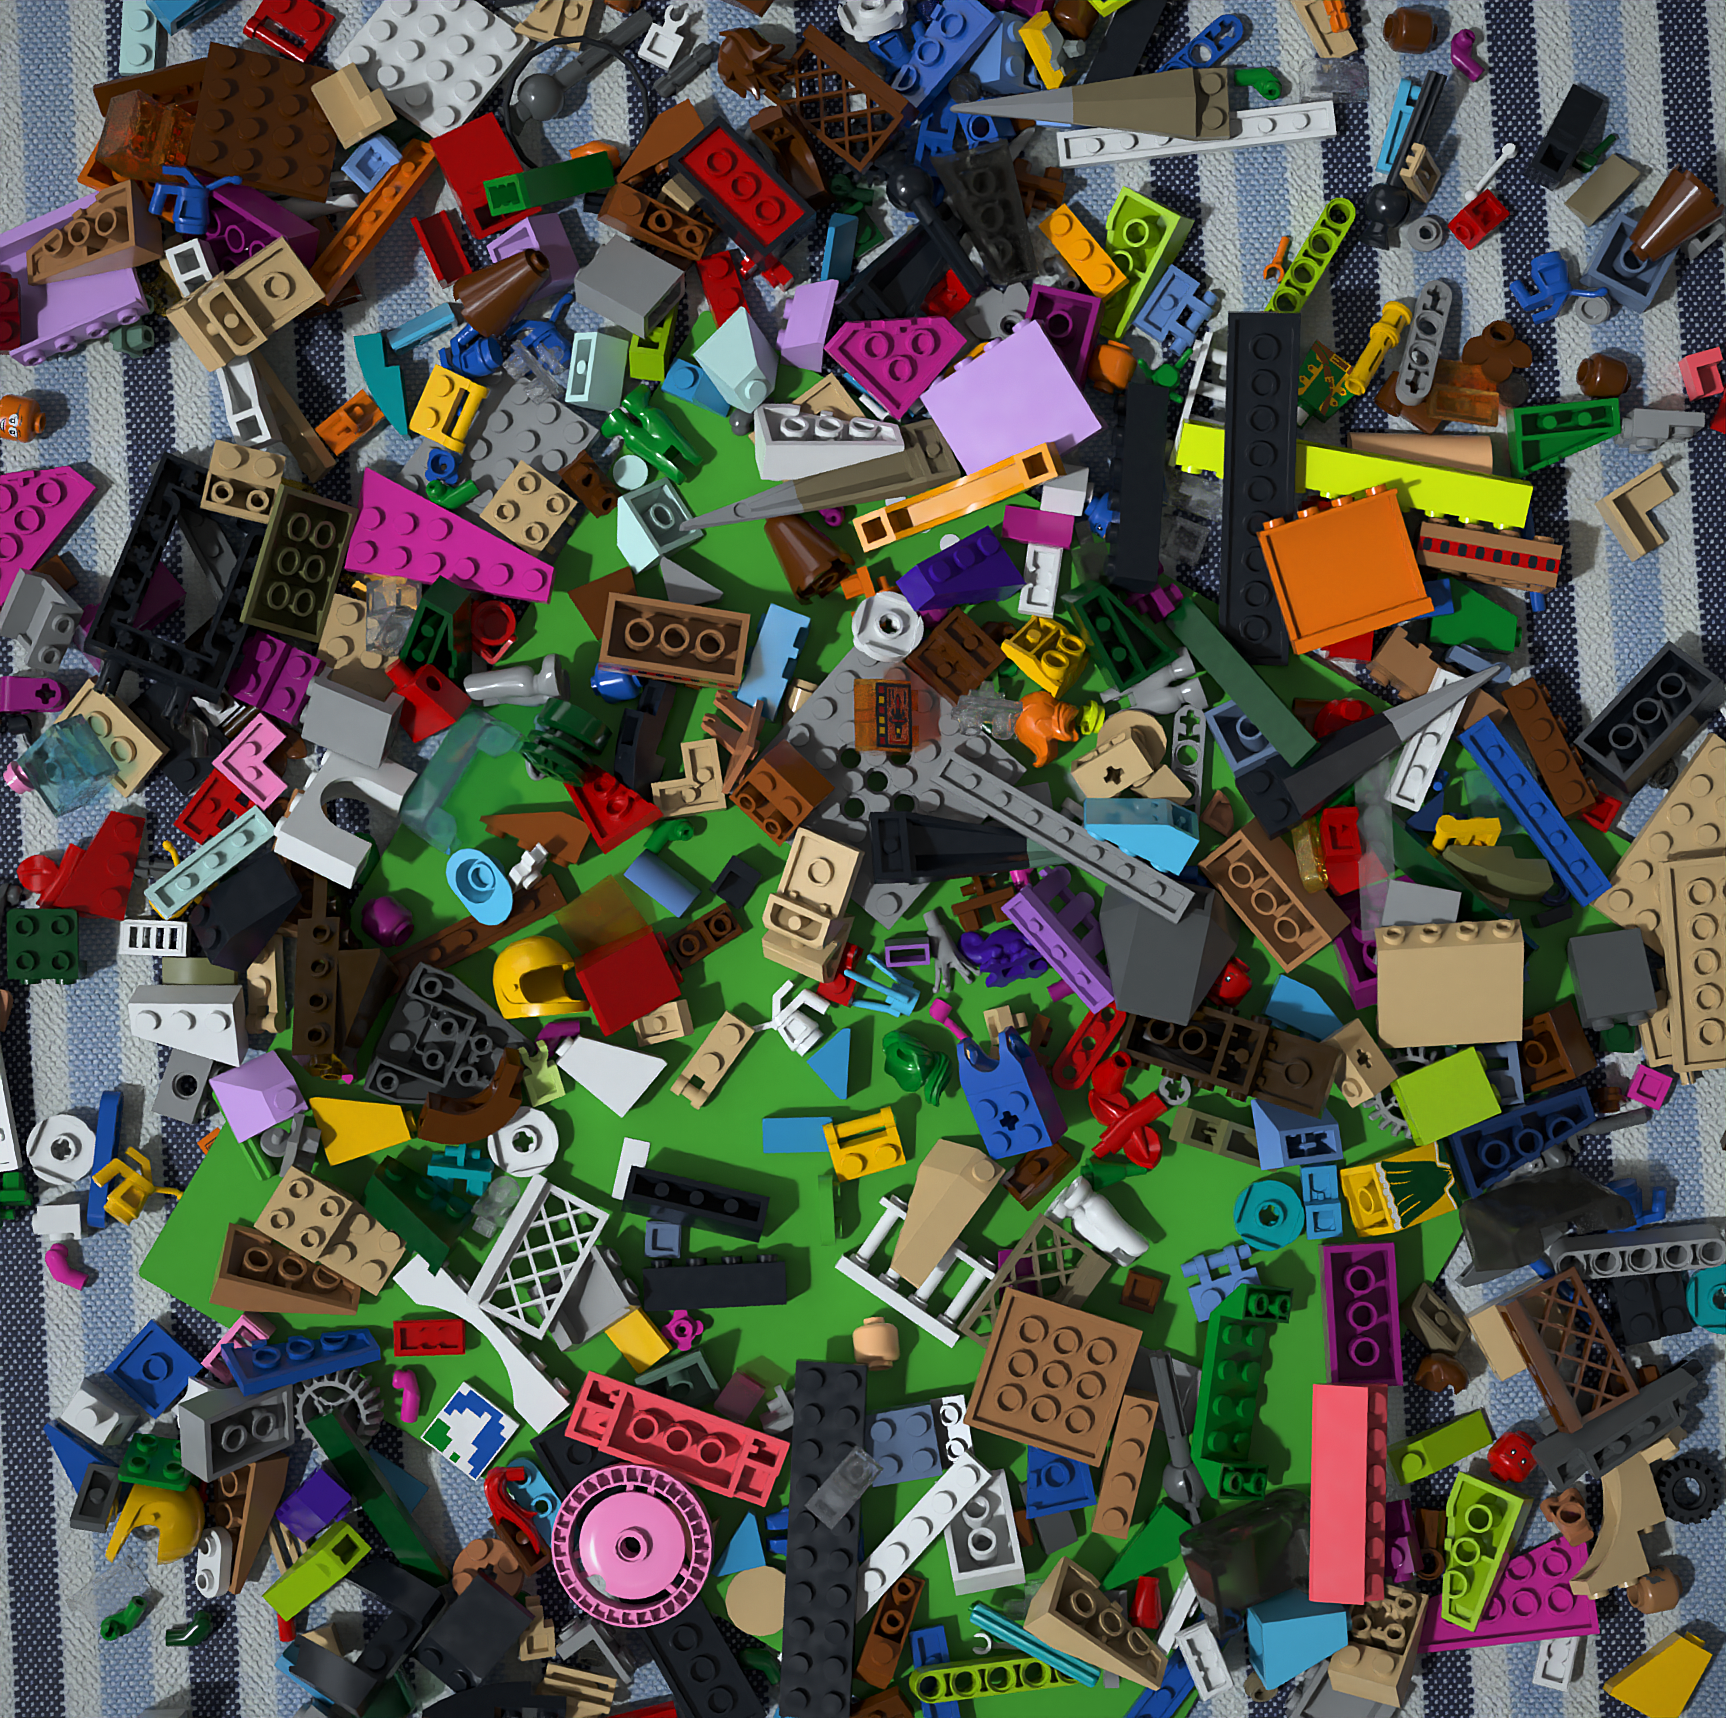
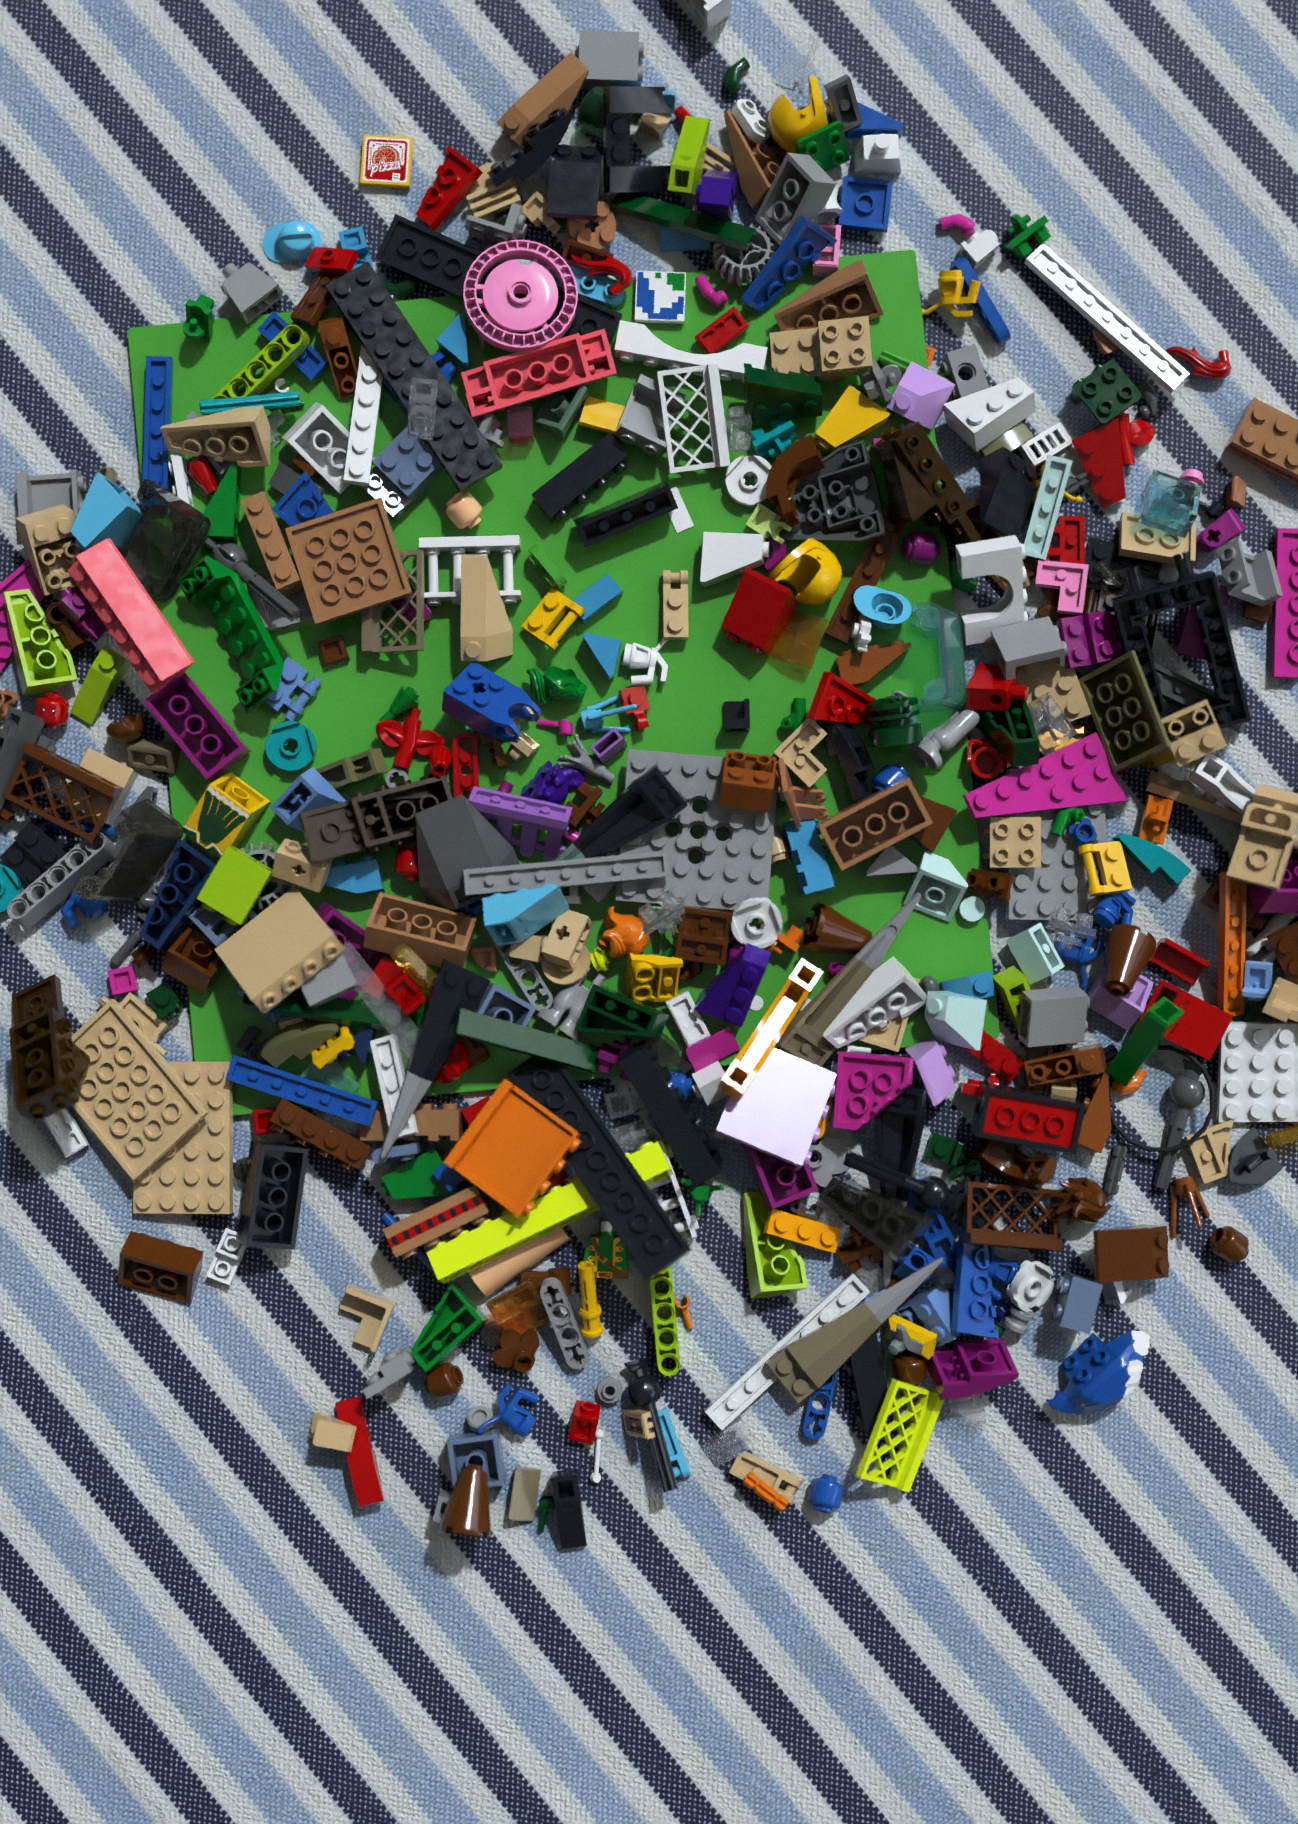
camera: 145 degrees right, 0 degrees up
(44, 1156) = (1017, 278): white plate -> none
(123, 1621) = (778, 53): green arm -> none
(267, 988) = (960, 461): tan plate -> none
(422, 329) = (1154, 906): medium azure slope -> none
(656, 440) = (971, 938): green piece -> none
(662, 883) = (778, 683): medium blue brick -> none
(663, 43) = (1139, 1176): white plate -> none
(663, 1239) = (629, 482): sand blue tile -> none
(664, 1023) = (717, 604): tan slope -> none
(692, 1326) = (575, 435): dark pink plate -> none
(703, 936) = (732, 671): reddish brown slope -> none
(757, 1600) = (427, 318): tan tile -> none
(809, 909) = (683, 727): tan piece -> none
(839, 247) = (947, 1128): dark azure slope -> none
(885, 717) = (719, 866): clear orange piece -> none
(946, 298) = (863, 1142): red bracket -> none
(1038, 1174) = (441, 671): reddish brown slope -> none
(1097, 1222) = (387, 670): white piece -> none
(1111, 367) = (737, 1175): orange head -> none
(1165, 305) = (732, 1237): medium blue plate -> none
(1204, 1660) = (146, 465): white plate -> none
(1261, 80) = (771, 1412): green arm -> none
(1321, 1200) = (265, 775): dark azure slope -> none
(1410, 30) = (706, 1506): reddish brown head -> none
(1440, 779) = (370, 1070): blue hand -> none
(1462, 54) = (665, 1516): magenta arm -> none
(1611, 979) = (187, 1025): dark grey brick -> none
(1702, 374) = (387, 1425): coral panel -> none

